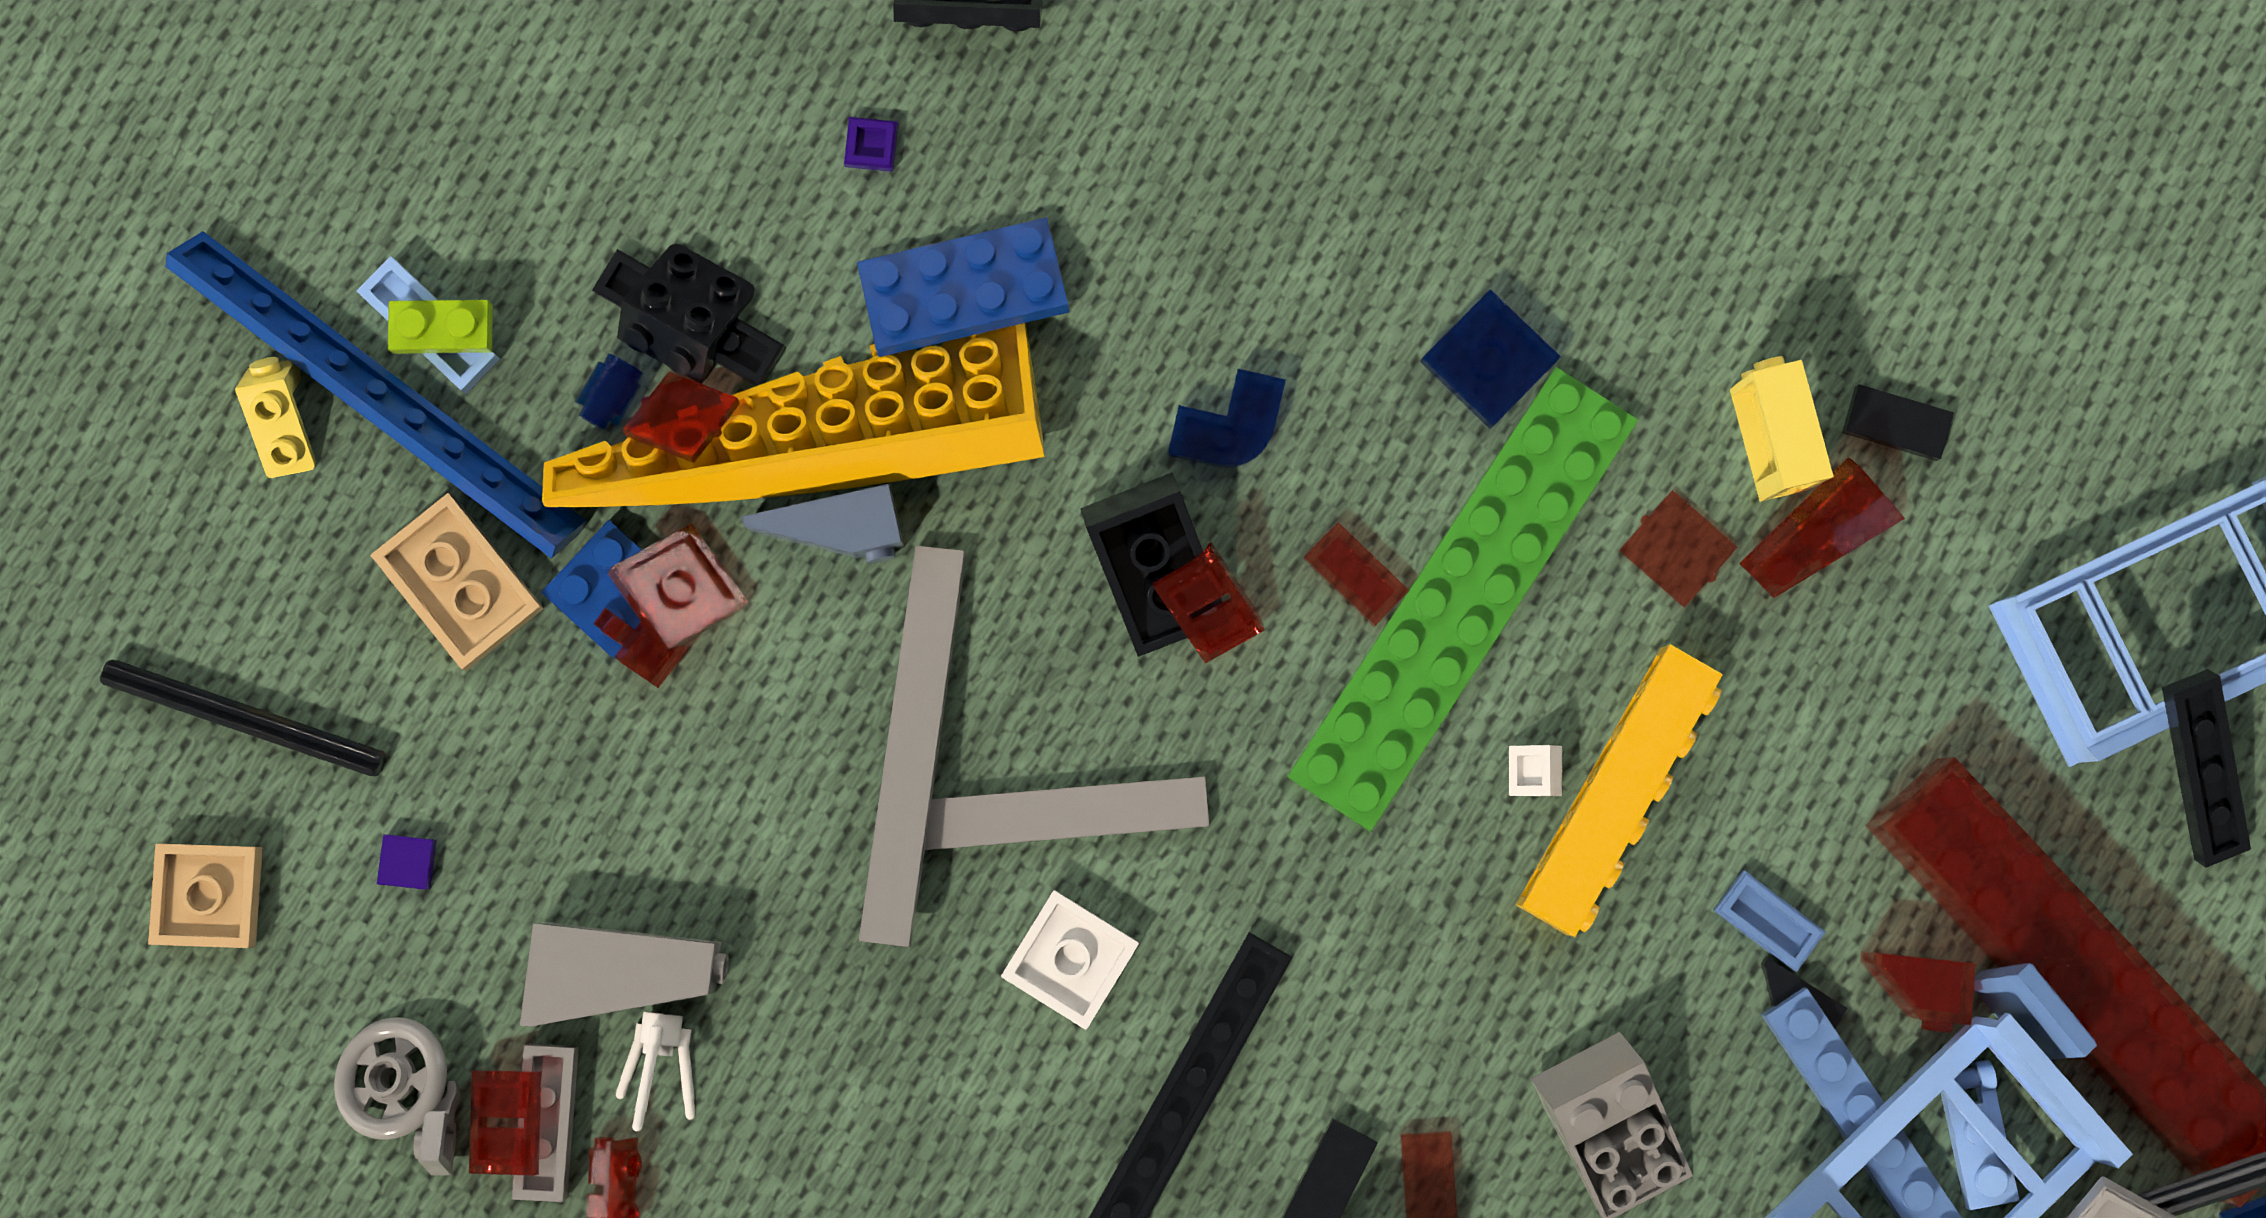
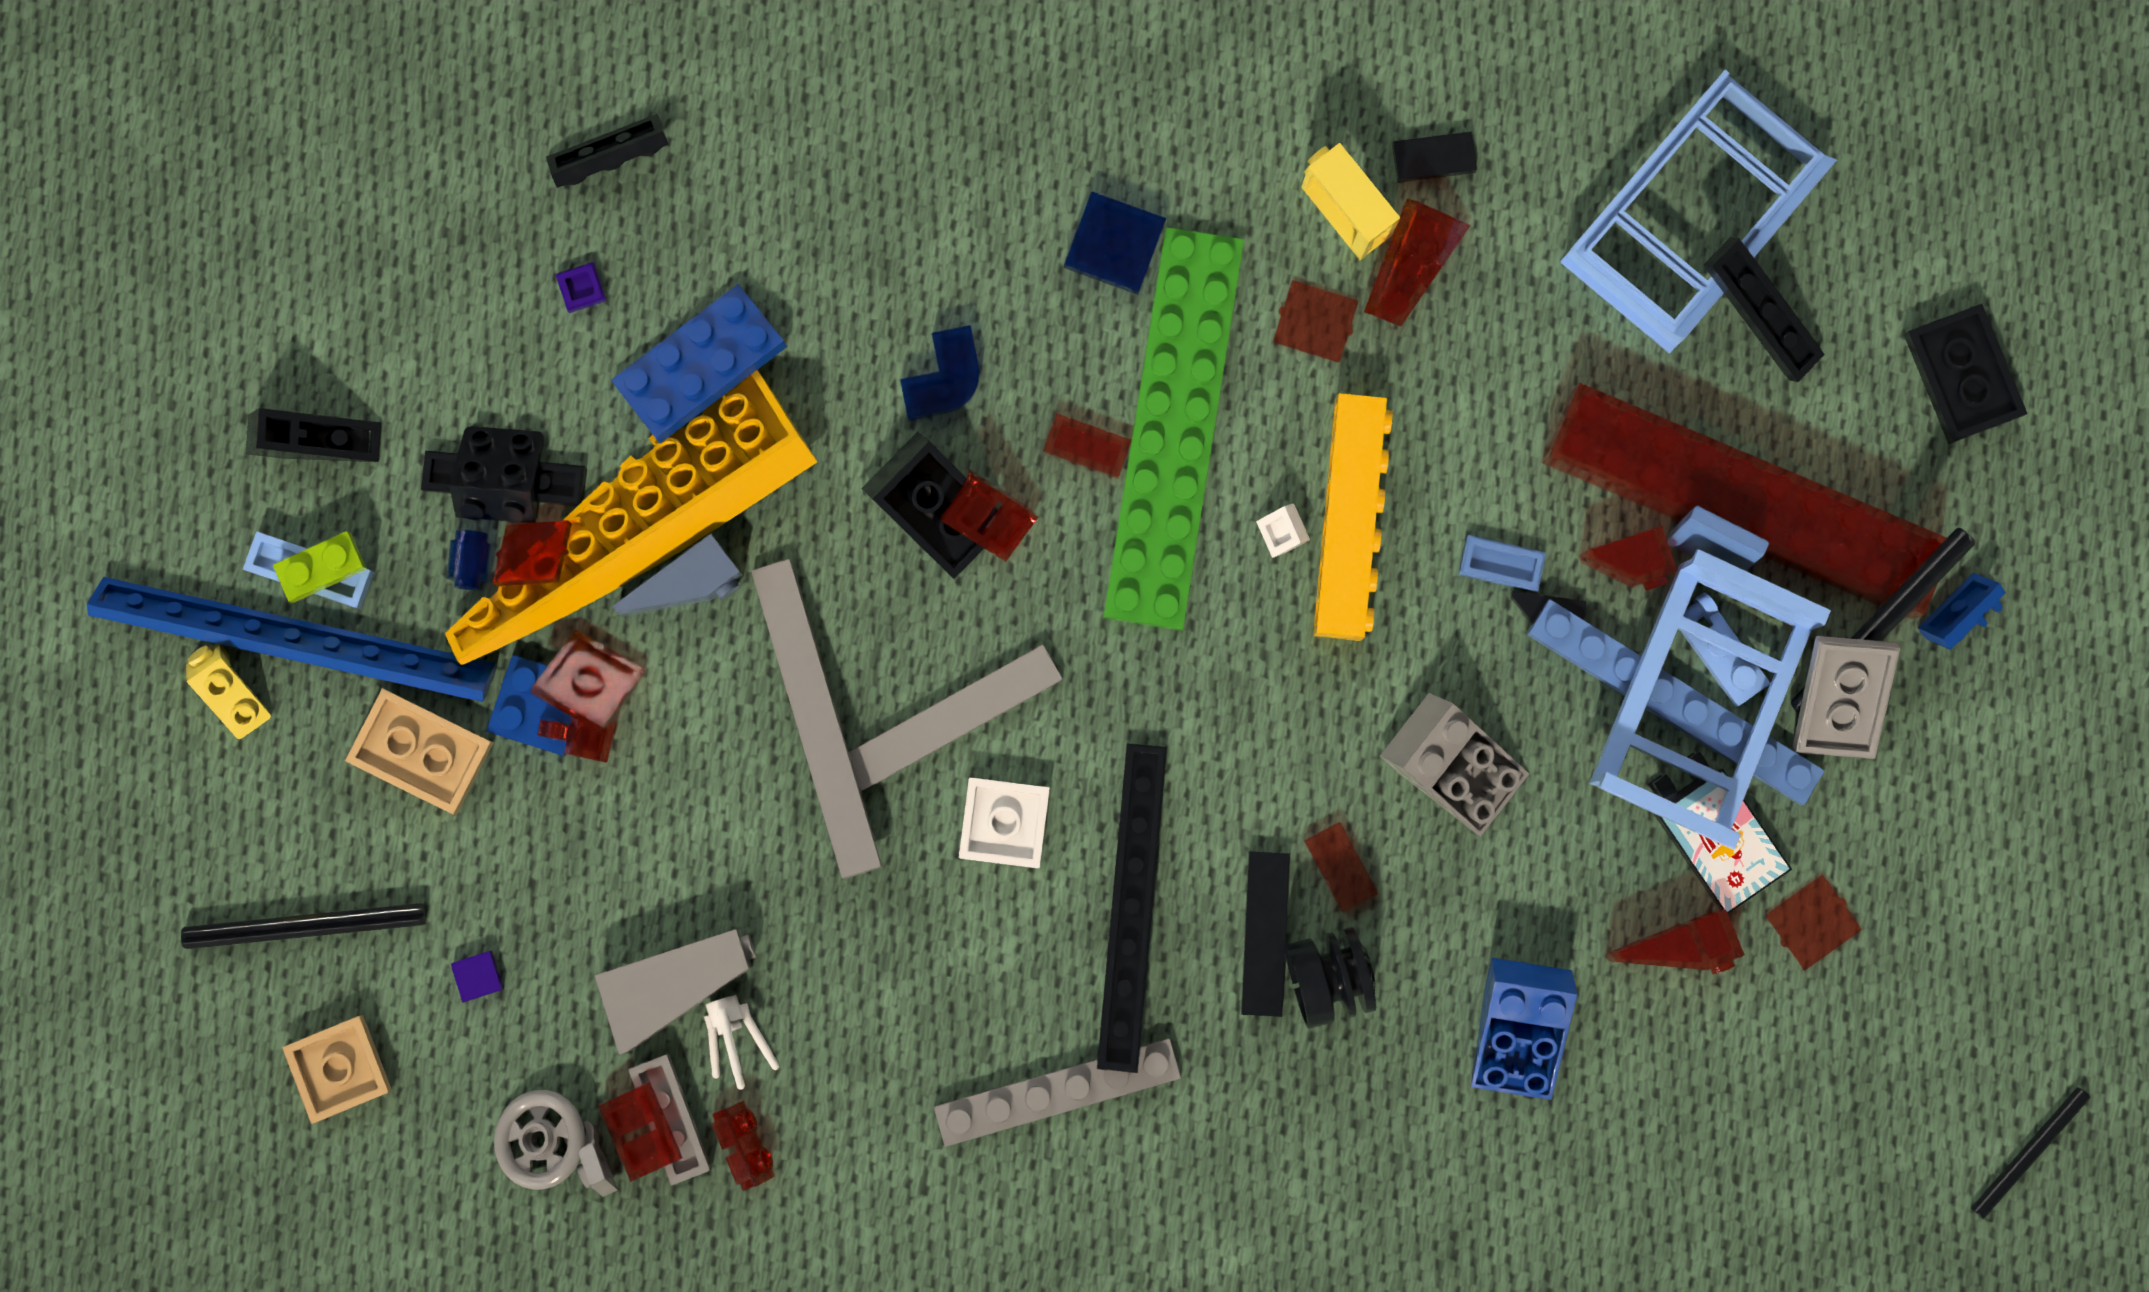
camera: 30 degrees left, 0 degrees up
(499, 178) = (311, 436): none -> black slope

